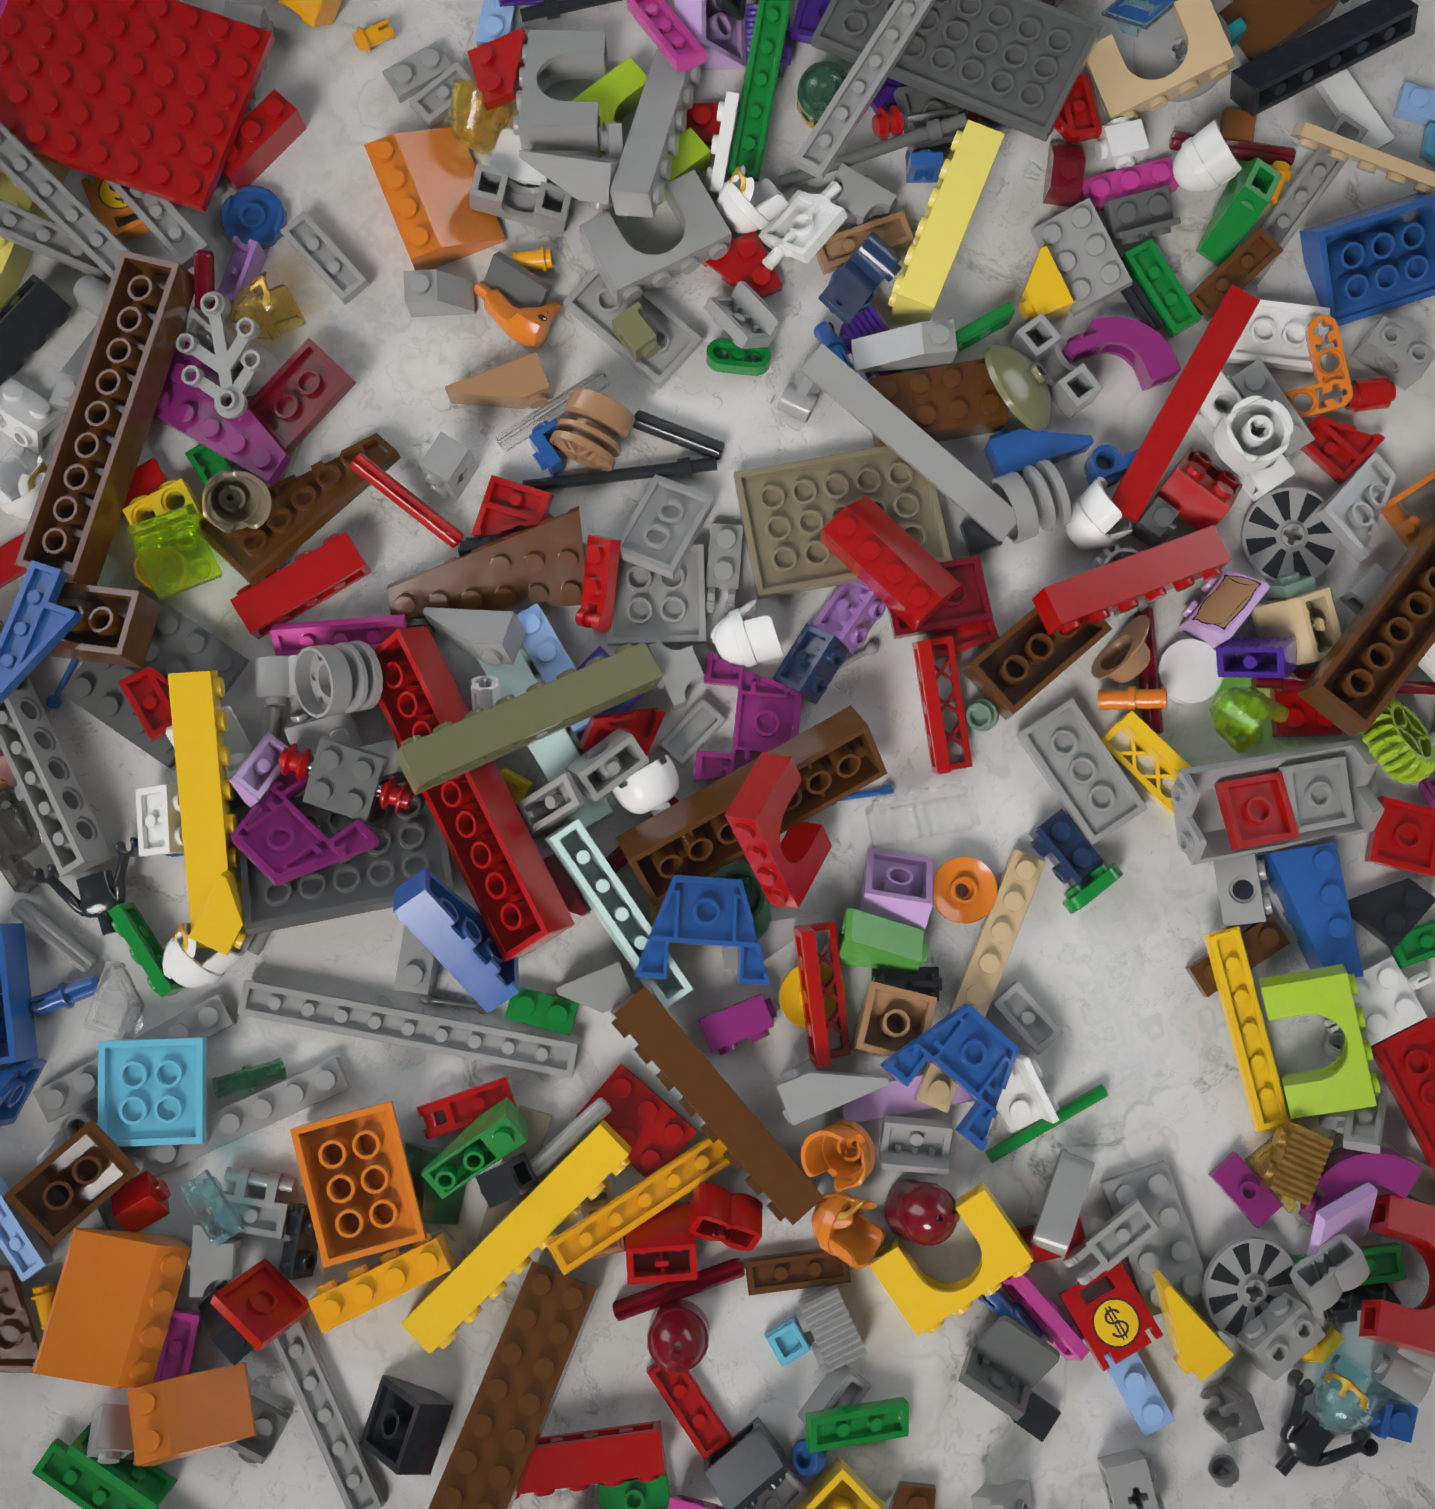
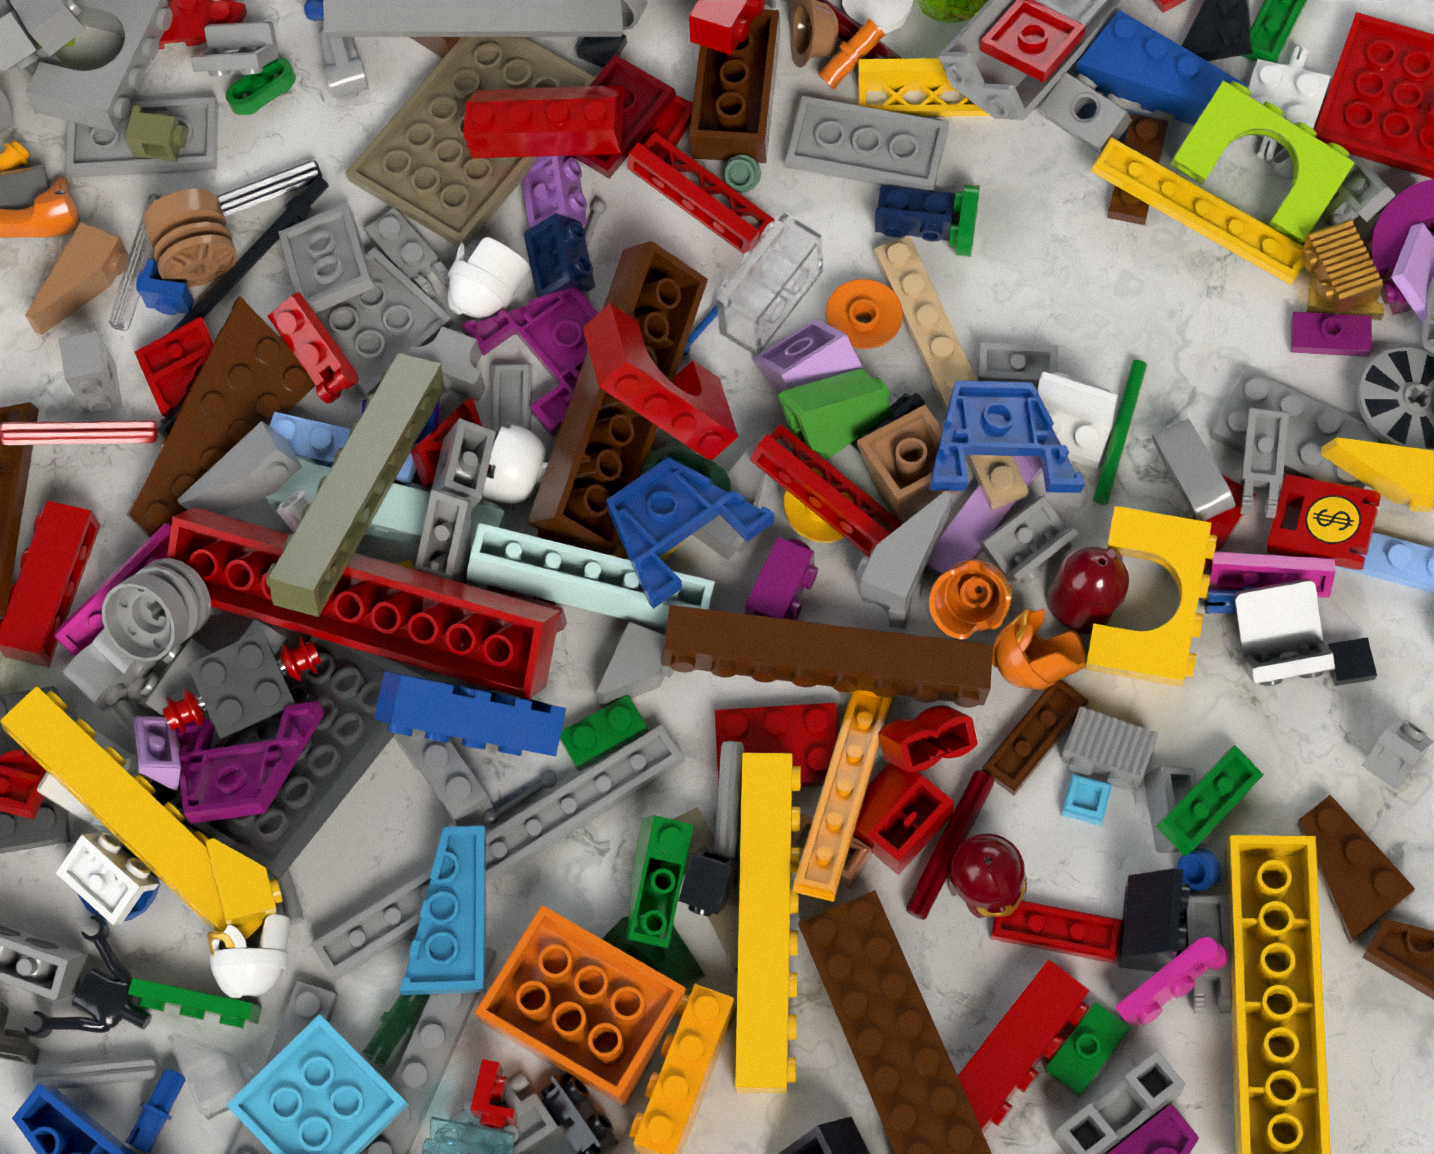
camera: 30 degrees left, 15 degrees down
(259, 1183) = (489, 1089): none -> red bracket
(327, 1059) = (452, 925): none -> dark azure wing
(464, 1107) = (610, 872): red plate -> none

